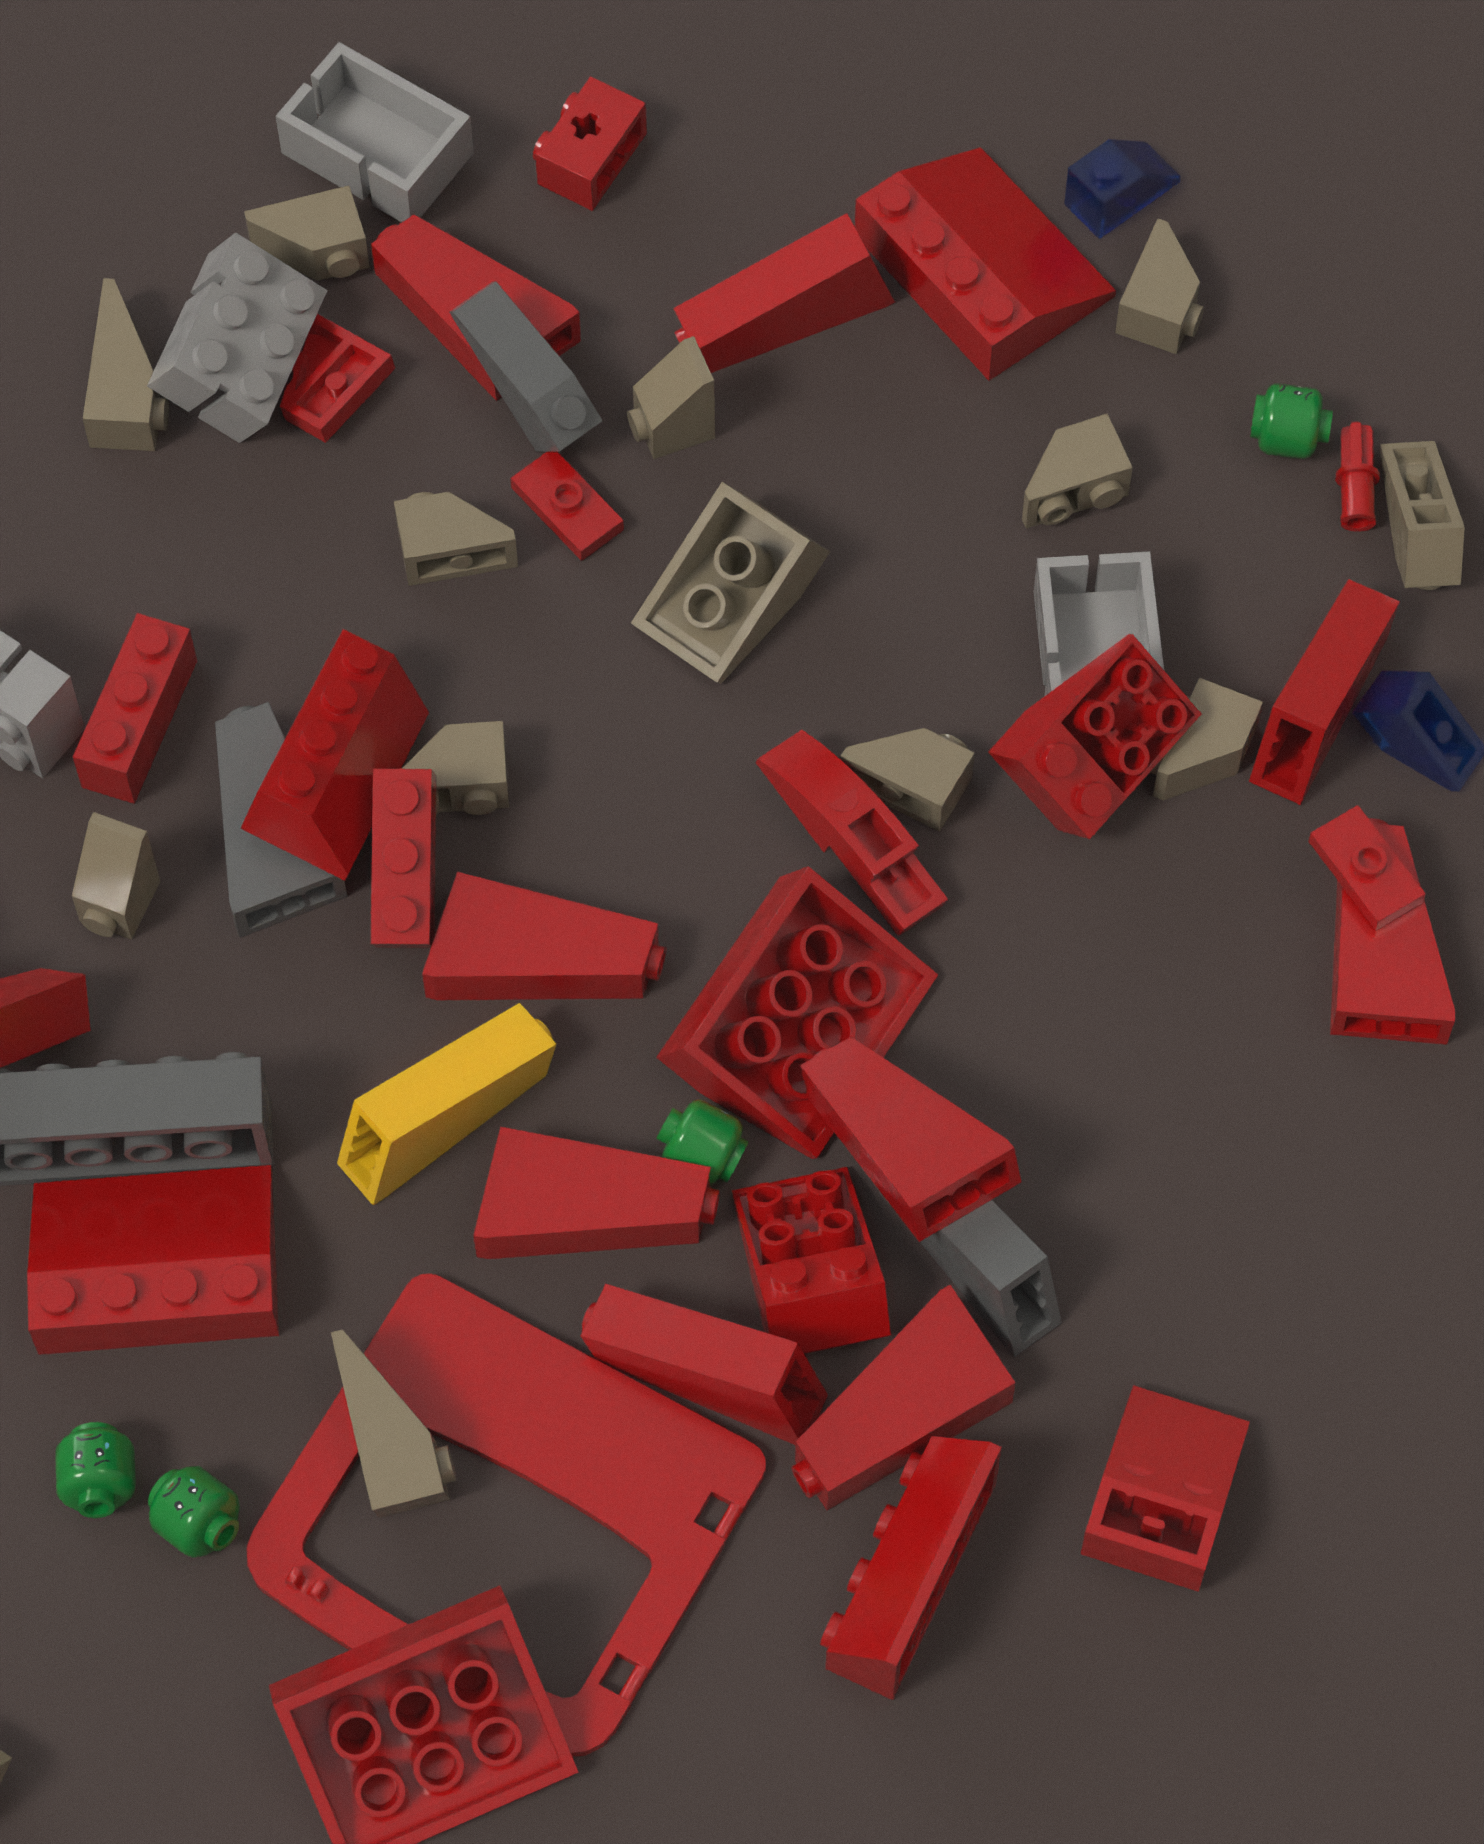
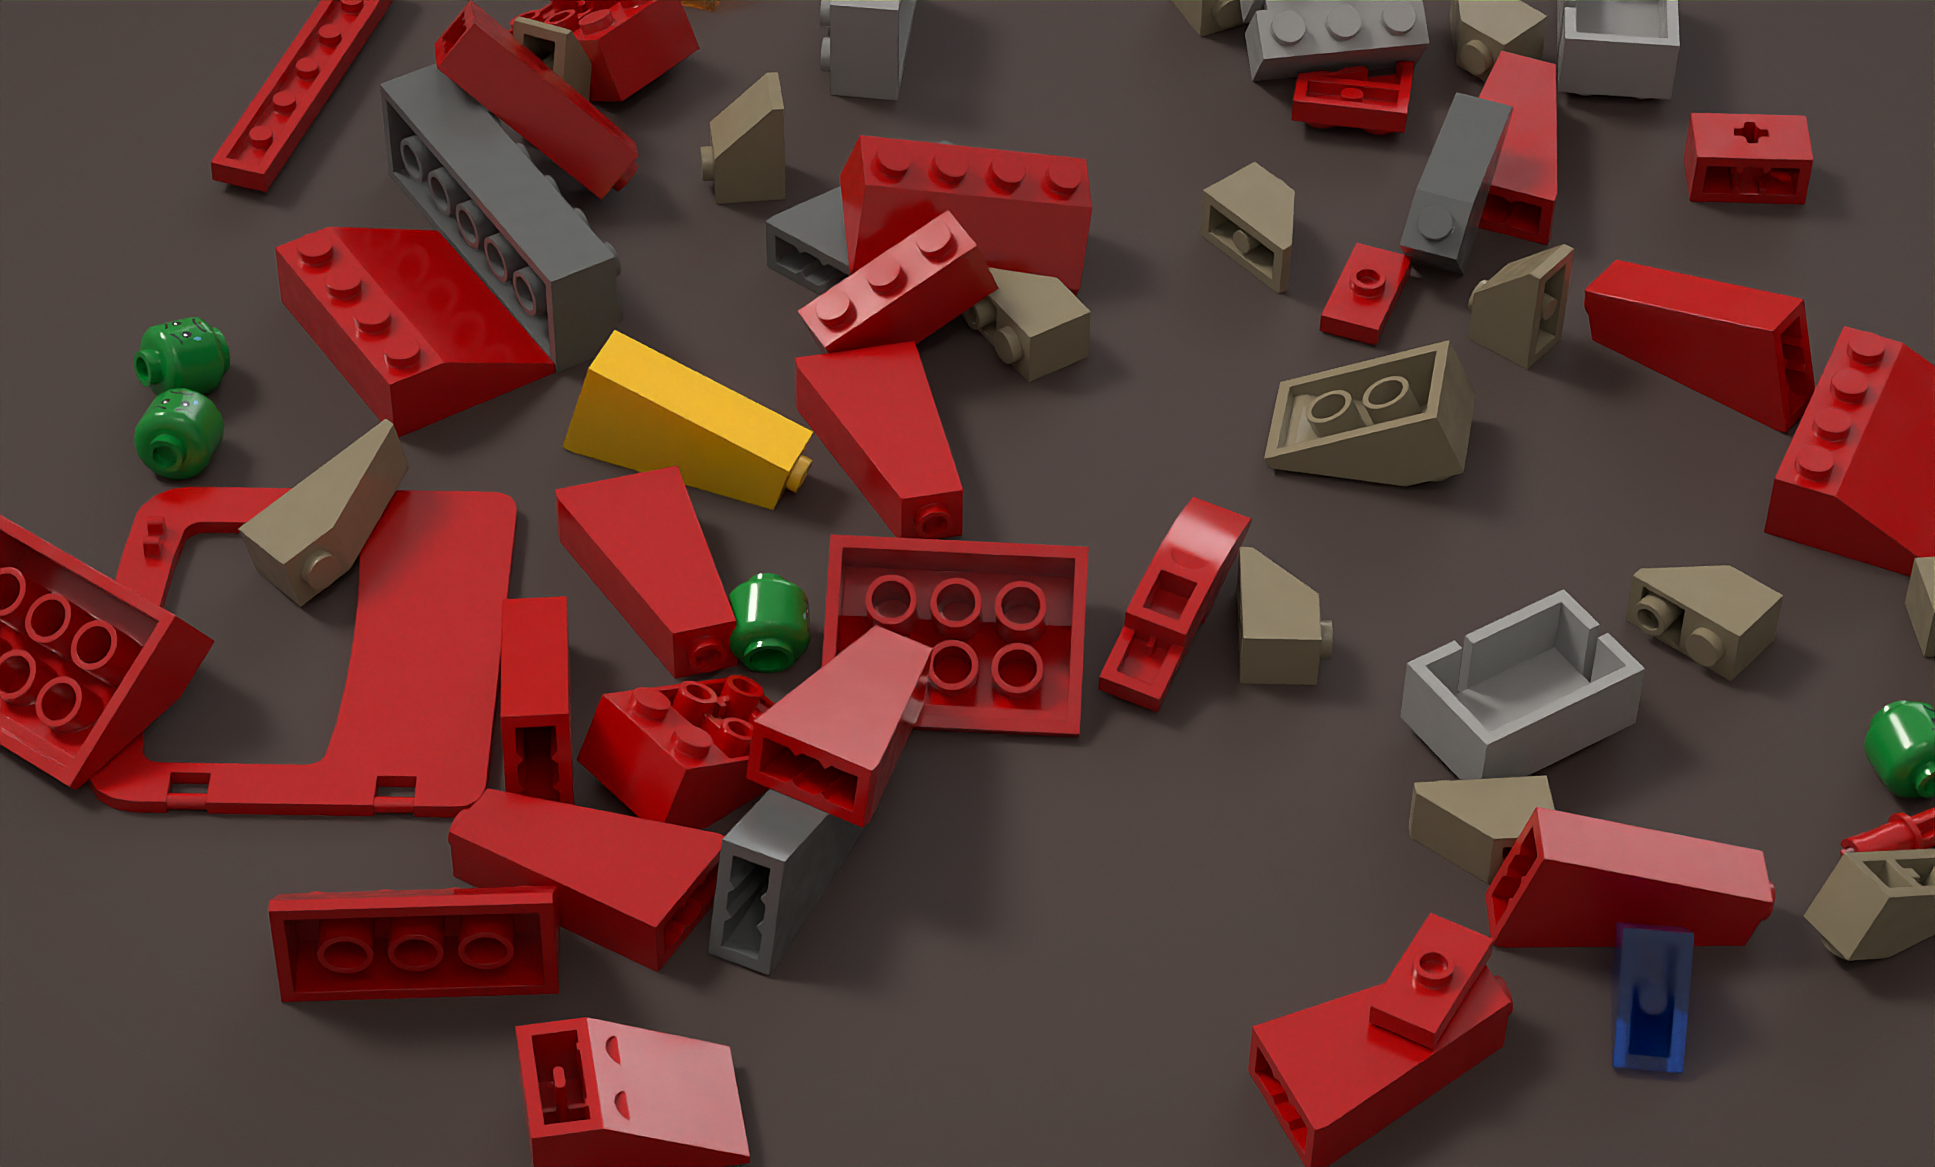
camera: 60 degrees right, 20 degrees down
(135, 708) = (931, 99): red brick -> none
(1095, 737) = (1403, 706): red slope -> none

